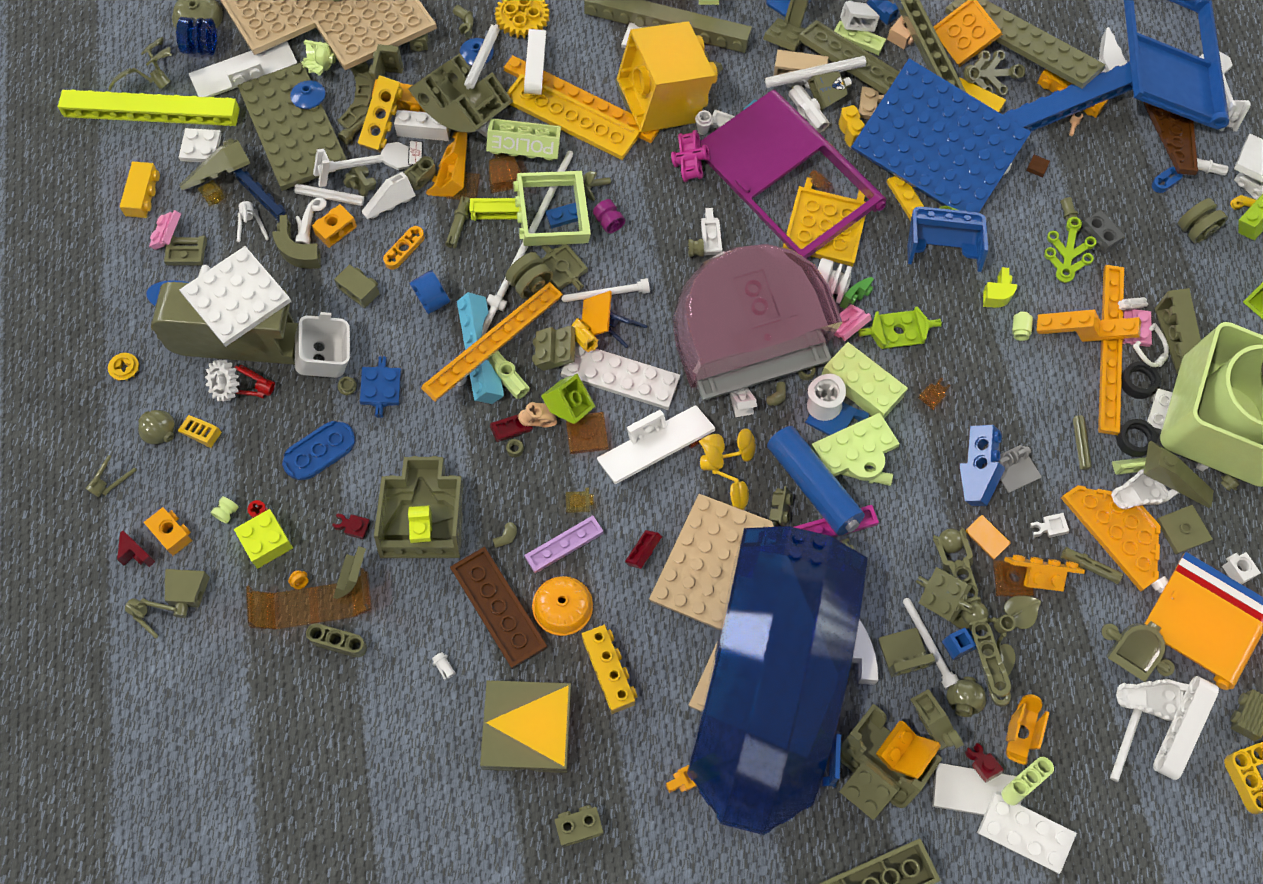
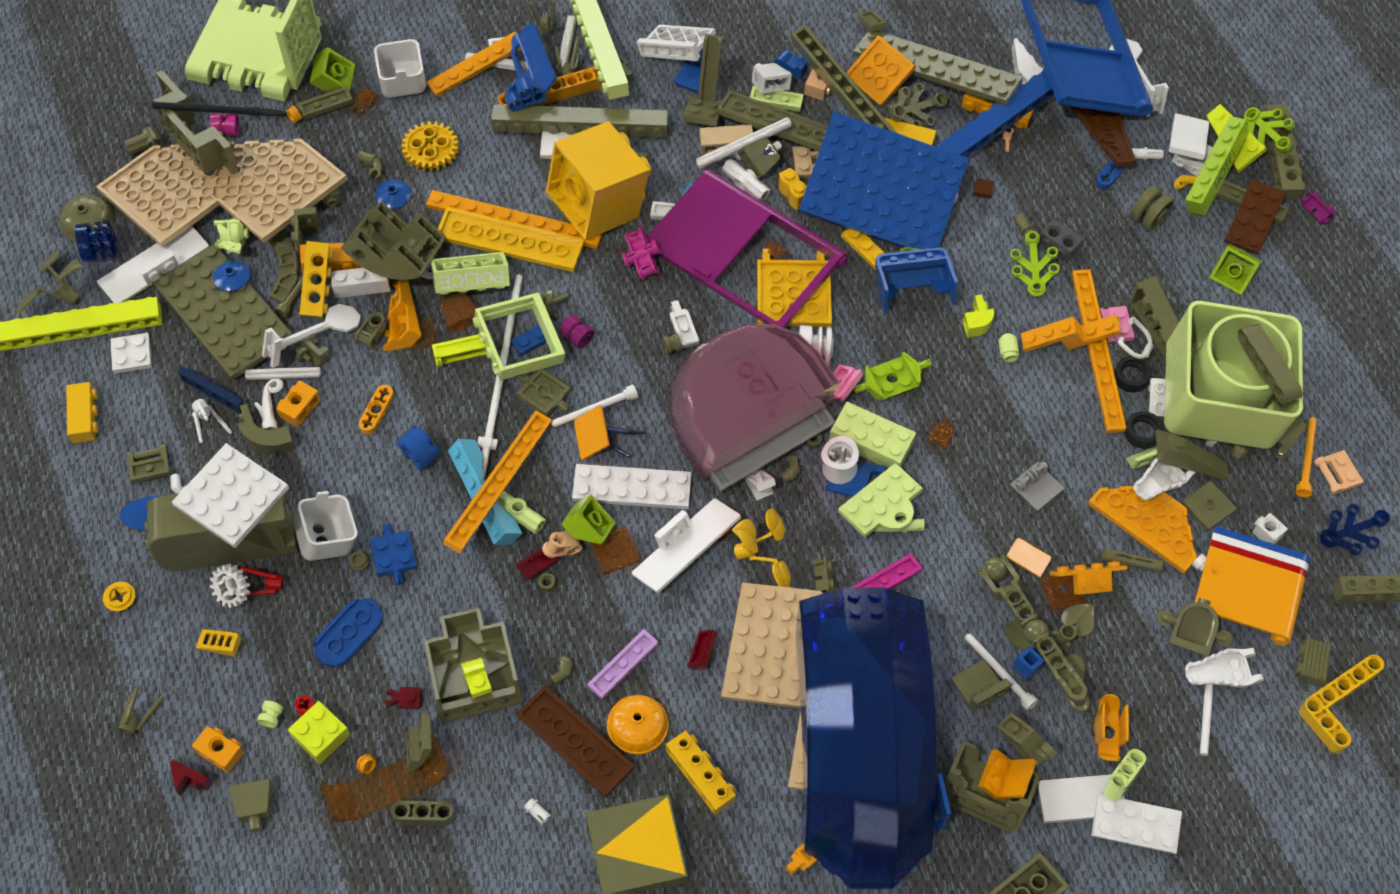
camera: 15 degrees left, 5 degrees down
(138, 610) = (211, 834): olive plant -> none
(156, 427) = (173, 649): olive plant -> none
(165, 228) = (121, 447): bright pink plate -> none
(211, 193) = (158, 399): clear yellow bracket -> none
(226, 157) = (165, 359): olive wedge -> none
(357, 286) = (340, 459): olive brick -> none
(391, 193) = (348, 357): white slope -> none
(415, 151) = (359, 310): white sticker -> none
(461, 215) = (425, 364): olive pin -> none
(482, 57) = (402, 200): white axle -> none
(528, 275) = (514, 408): olive wheel -> none
(535, 62) = (458, 192): white beam -> none
(554, 347) = (559, 474): olive plate -> none
(579, 501) = (626, 618): clear yellow bracket -> none
(584, 336) = (581, 454): yellow piece -> none
(703, 122) = (645, 216): white cone -> none
(815, 481) = (852, 542): blue piece -> none
(858, 292) = (842, 351): bright green slope -> none
(865, 656) = (945, 701): white slope -> none
(869, 789) = (980, 821): olive plate -> none
(945, 594) = (1003, 620): olive plate -> none
(967, 696) = (1050, 711): olive plant -> none
(977, 482) = (1009, 506): brick -> none
(983, 764) = (1081, 771): dark red plate -> none
(1053, 525) = (1086, 531): white plate -> none
(1082, 442) = (1093, 446): olive axle -> none
(1132, 303) = (1107, 302): white axle -> none
(1186, 728) = (1256, 688): white beam -> none

